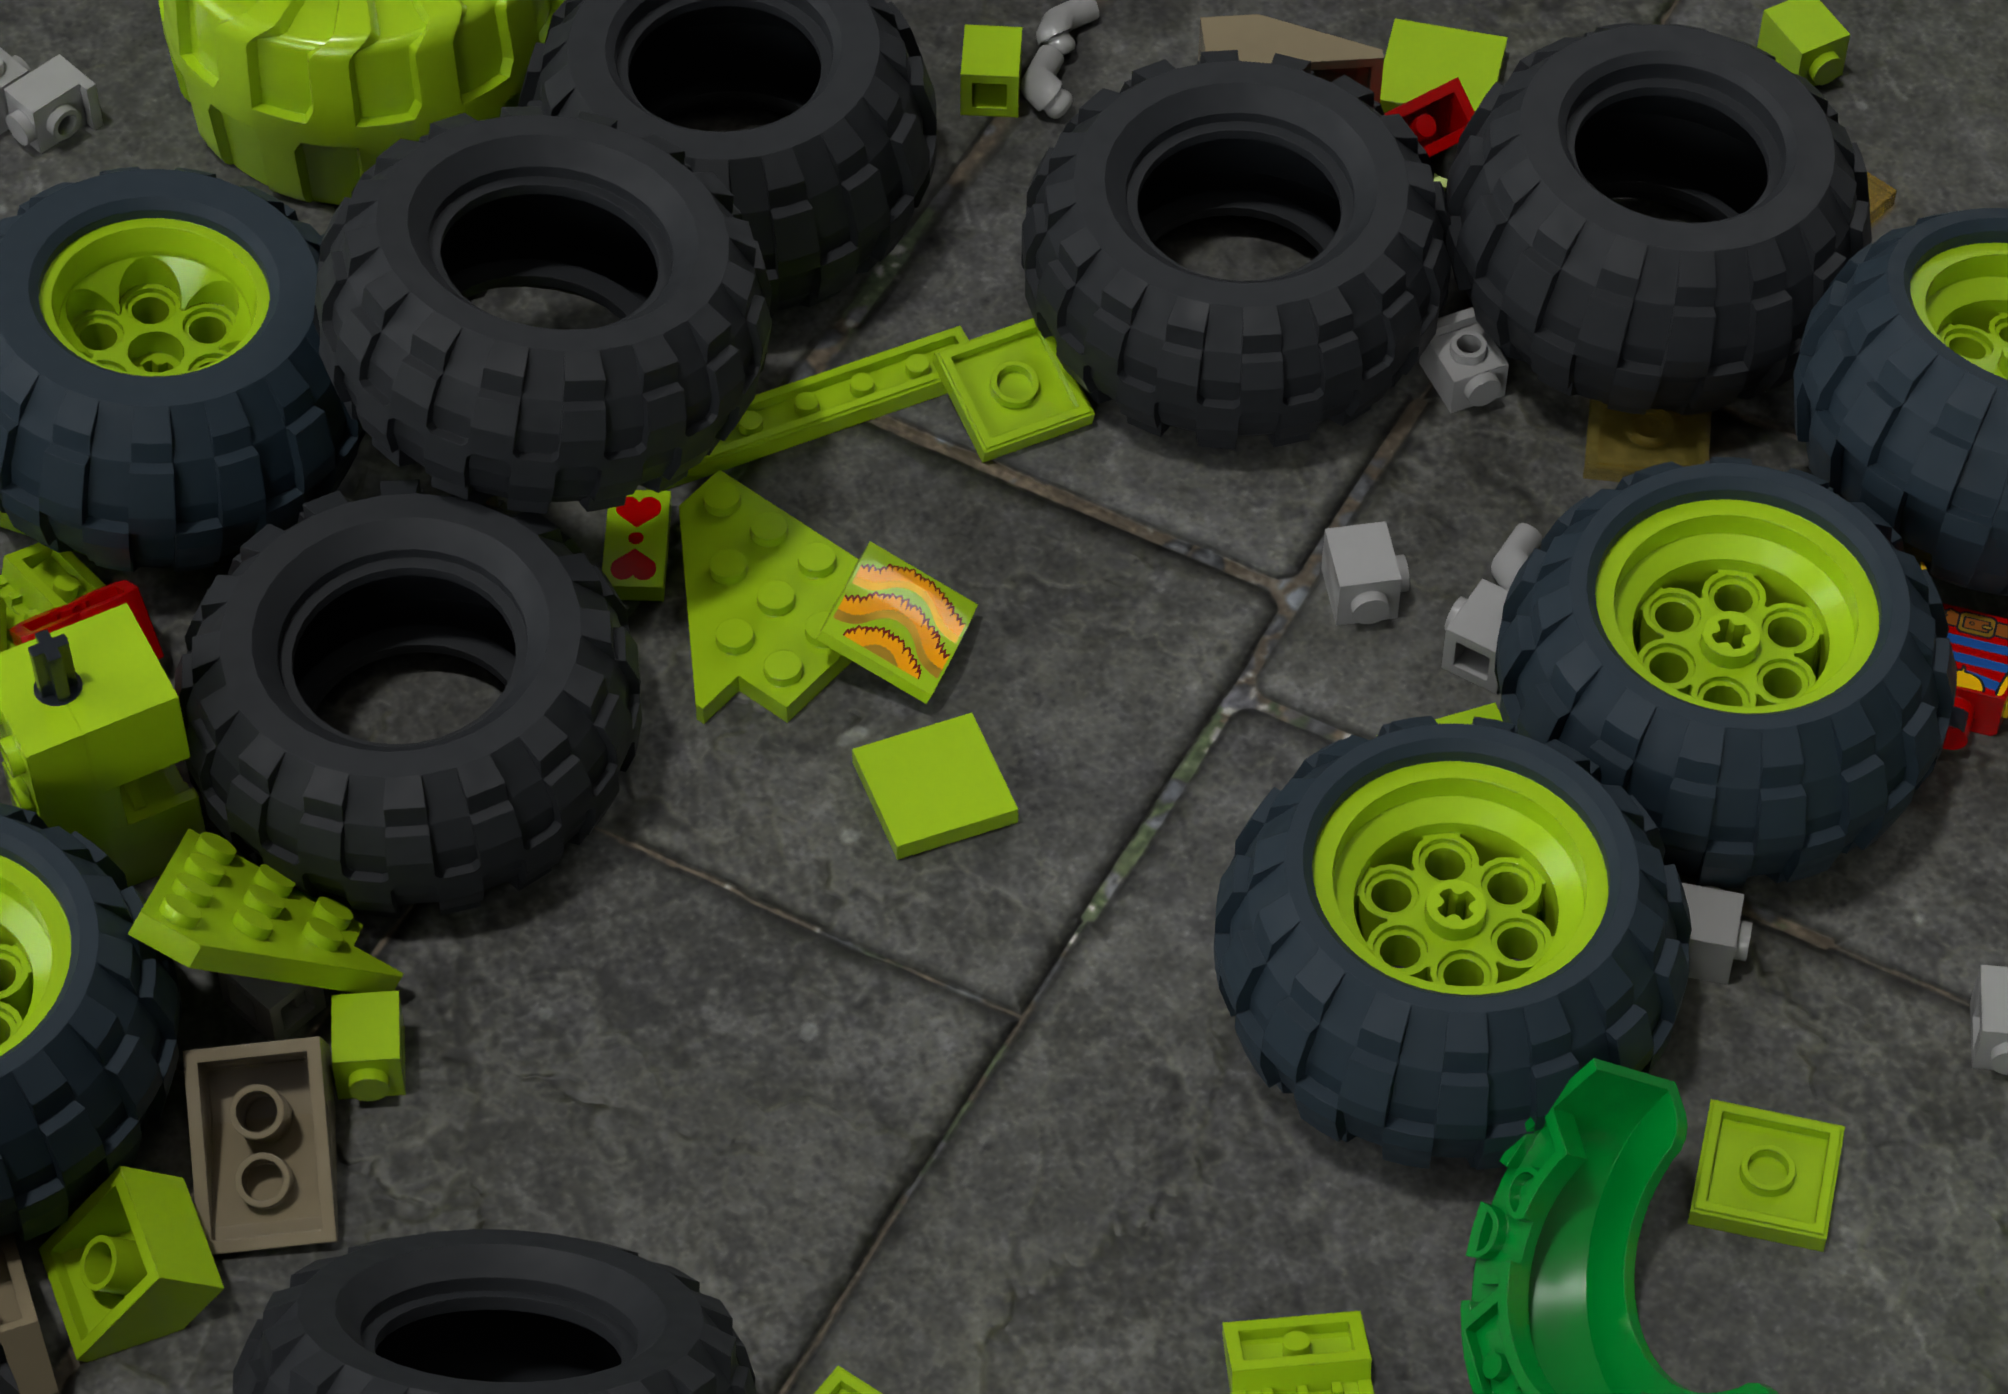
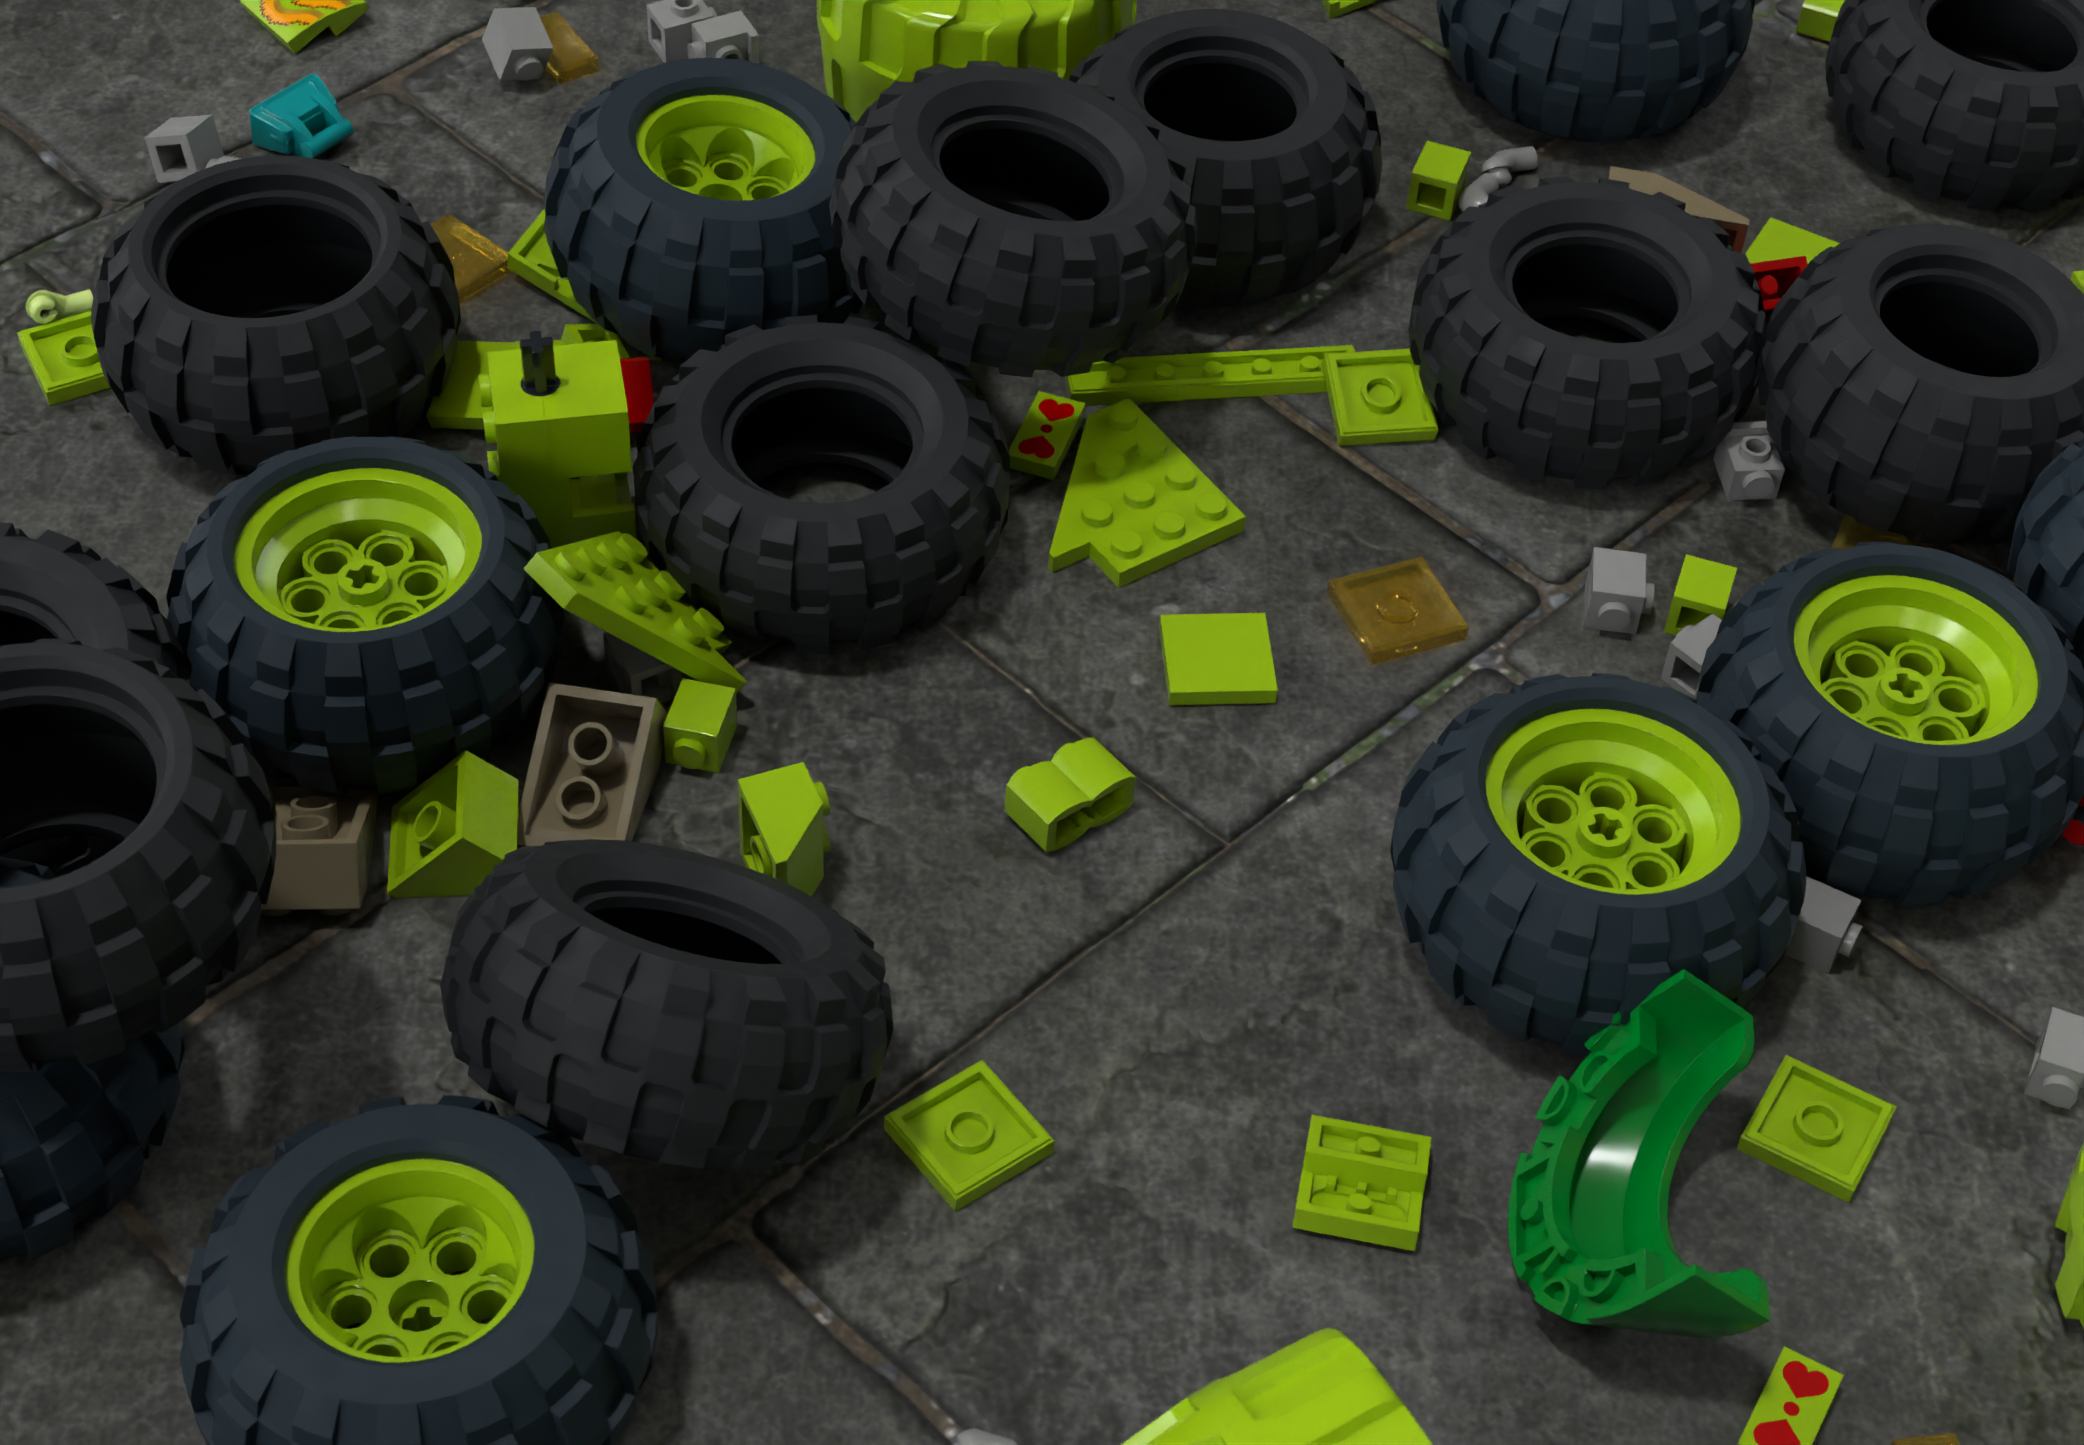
camera: 15 degrees right, 5 degrees down
(521, 1157) = (784, 826): none -> lime slope
(825, 1009) = (1069, 794): none -> lime brick
(897, 622) = (1227, 532): slope -> none
(1119, 664) = (1397, 610): none -> clear yellow tile
(1458, 554) = (1700, 591): none -> lime brick

